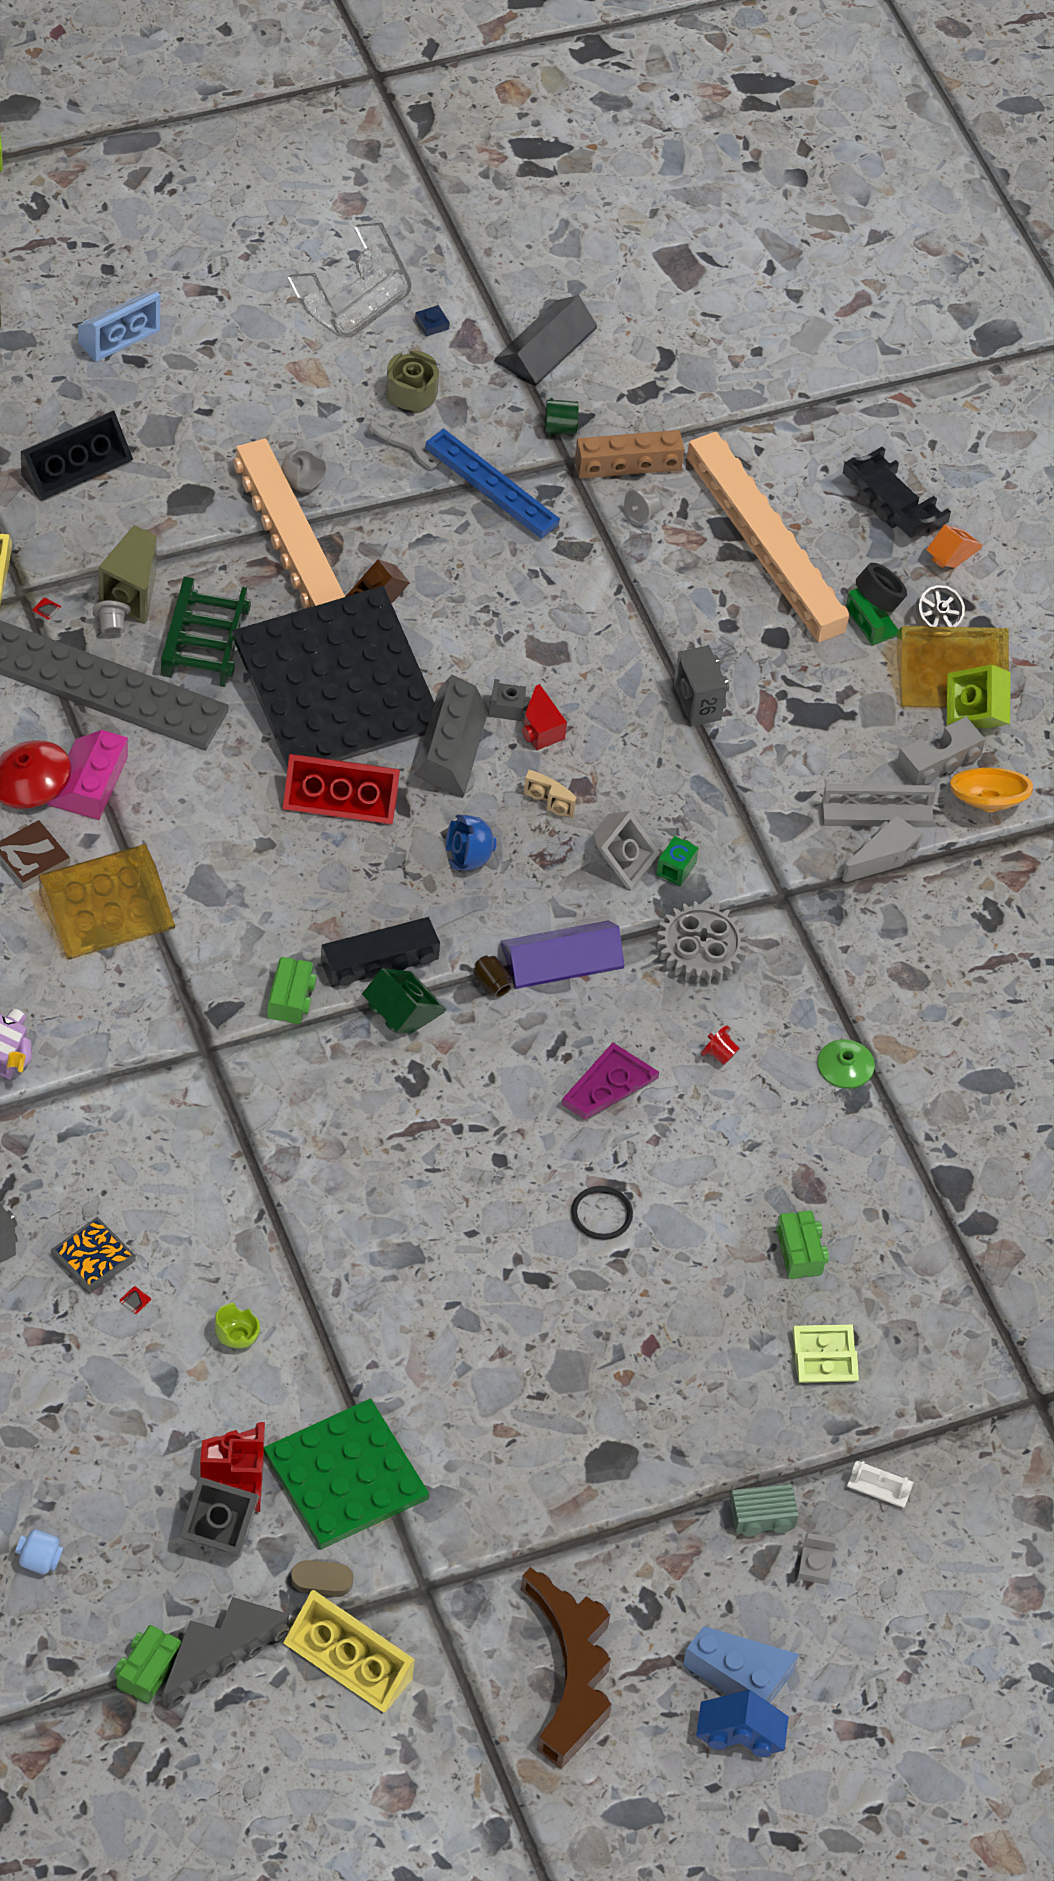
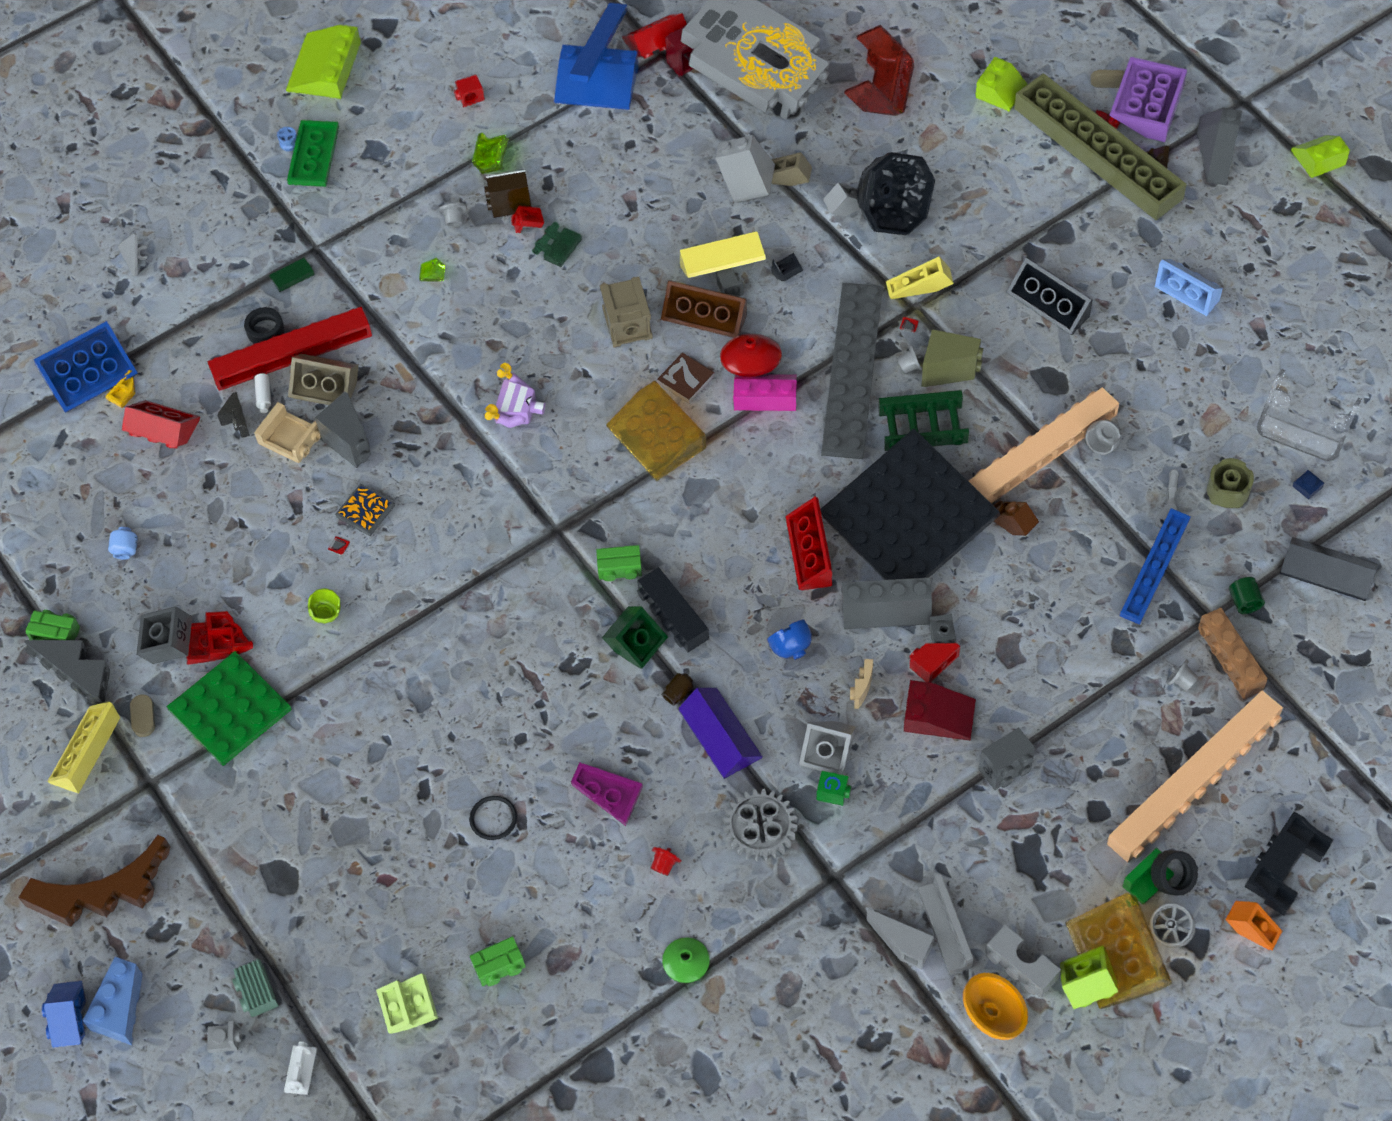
camera: 85 degrees right, 5 degrees up
(608, 739) = (938, 711): none -> dark red slope

